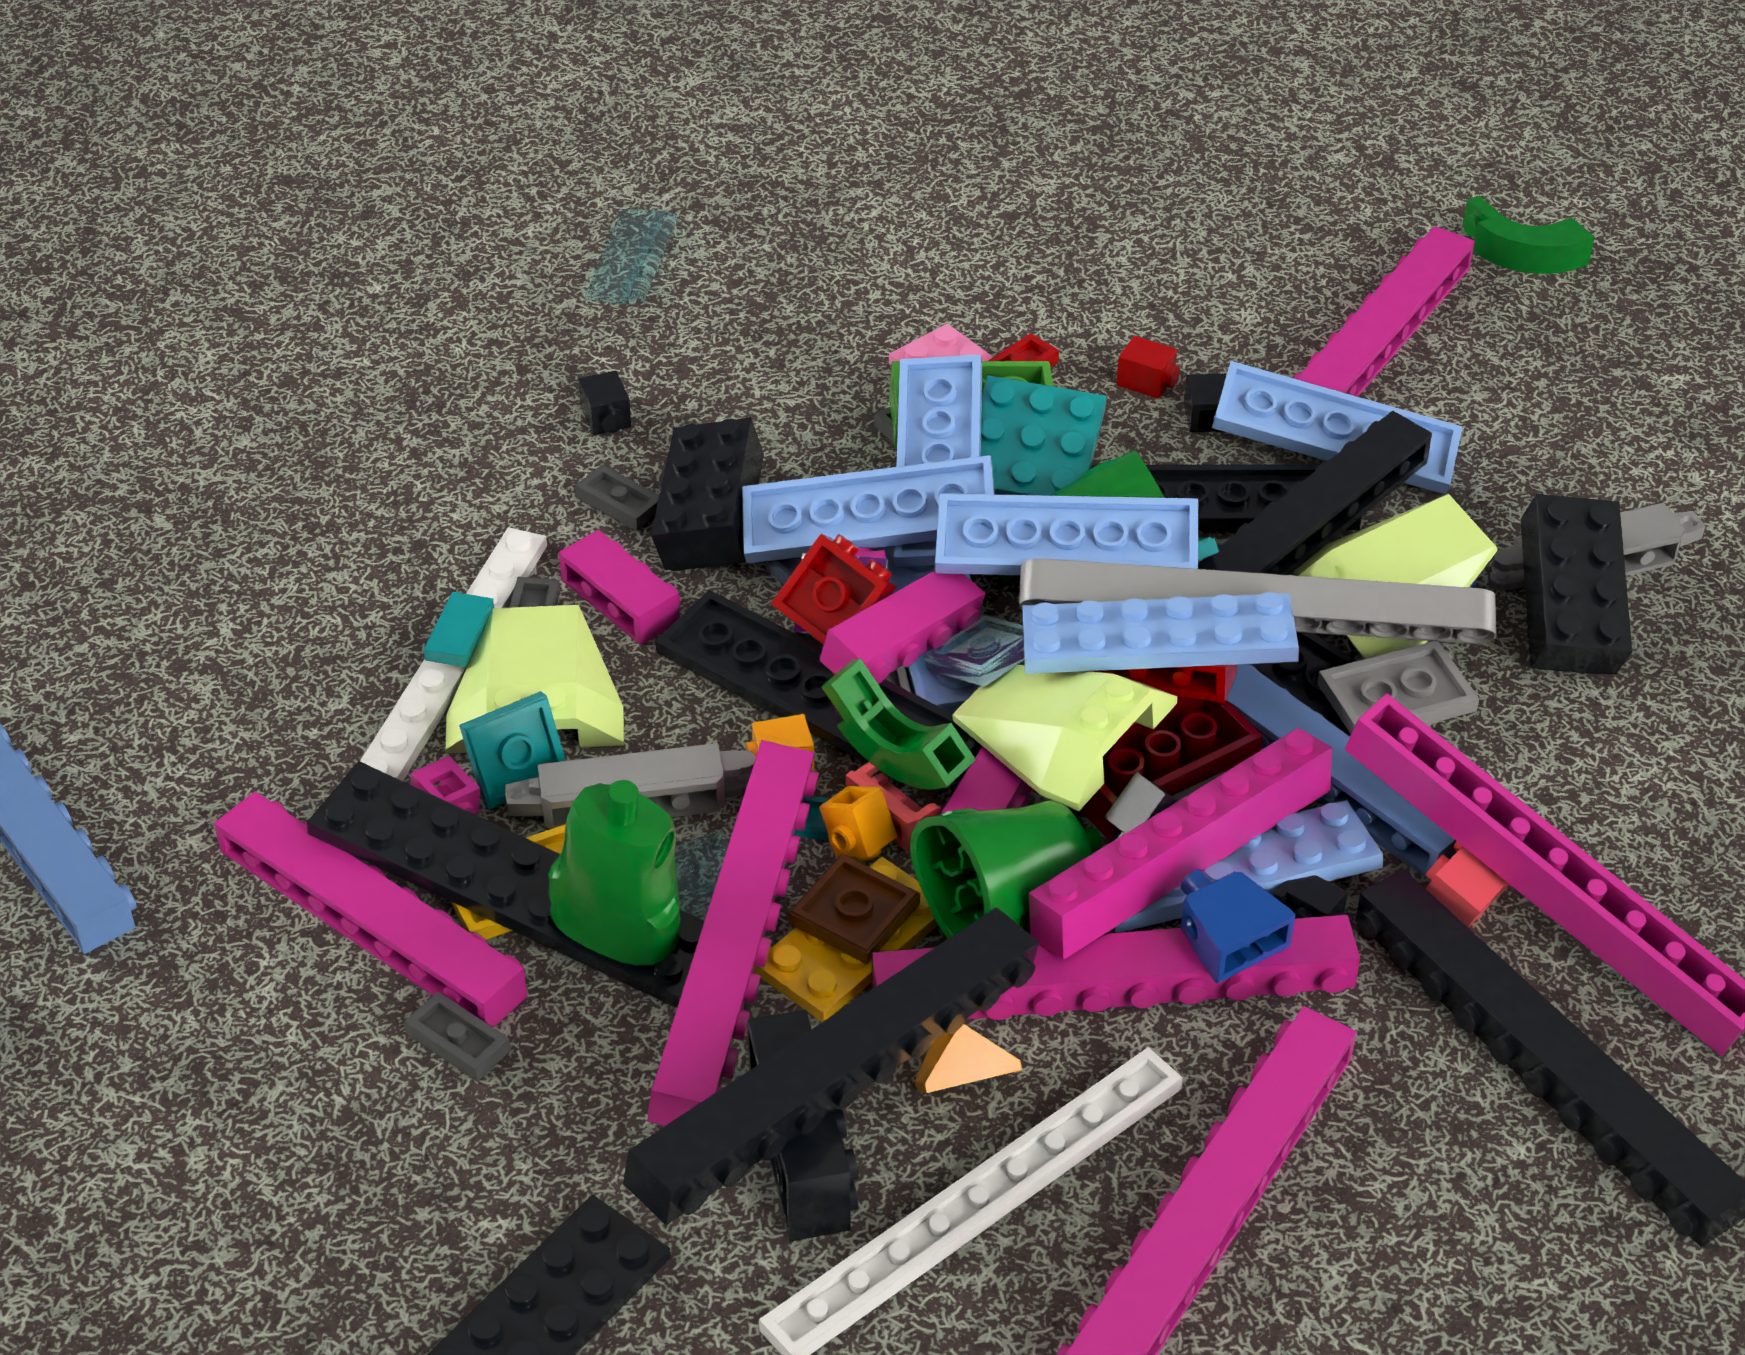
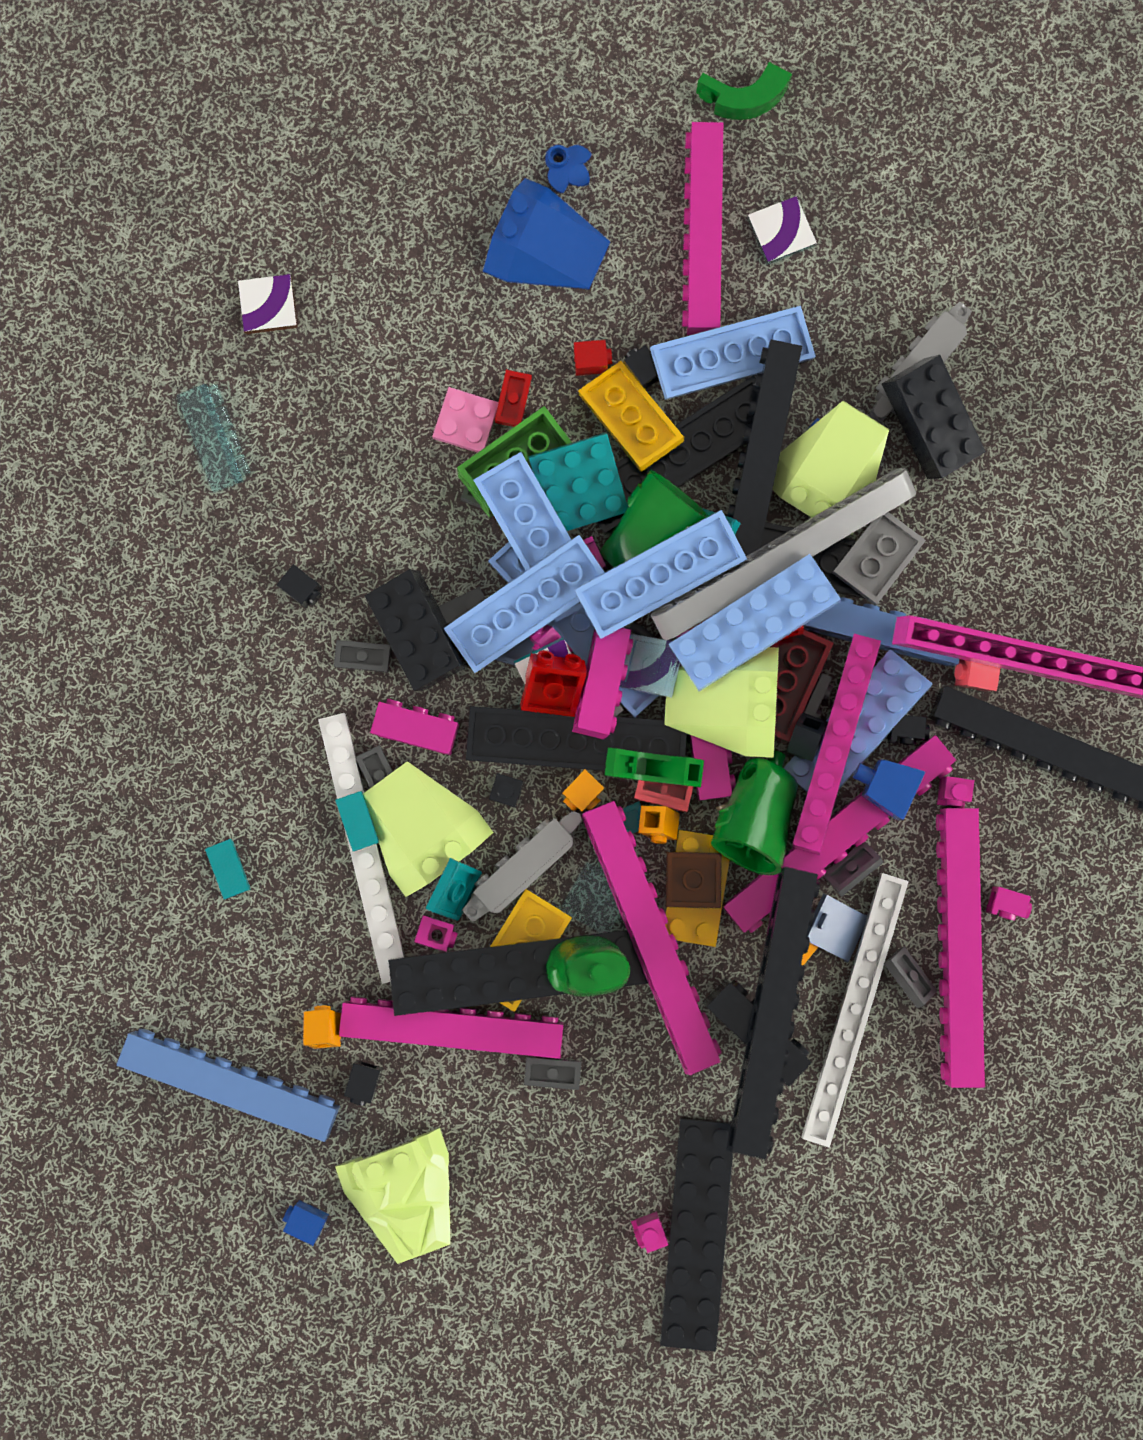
camera: 30 degrees left, 40 degrees up
(115, 1061) = (403, 1195): none -> yellowish green wedge
(193, 903) = (363, 1083): none -> black brick
(194, 809) = (321, 1028): none -> light orange brick
(253, 614) = (227, 869): none -> teal tile
(416, 1309) = (649, 1232): none -> dark pink brick
(679, 696) = (506, 790): none -> black brick
(797, 184) = (267, 304): none -> tile
(1021, 1064) = (836, 927): none -> container
(1098, 1203) = (910, 977): none -> dark grey plate
(1125, 1022) = (853, 868): none -> dark grey plate
(1159, 427) = (631, 416): none -> yellow plate
(1166, 258) = (544, 241): none -> blue wedge
(1251, 217) = (570, 170): none -> blue plate
(1328, 1189) = (1009, 903): none -> dark pink brick
(1339, 997) = (955, 791): none -> dark pink brick
(1488, 369) = (781, 230): none -> tile

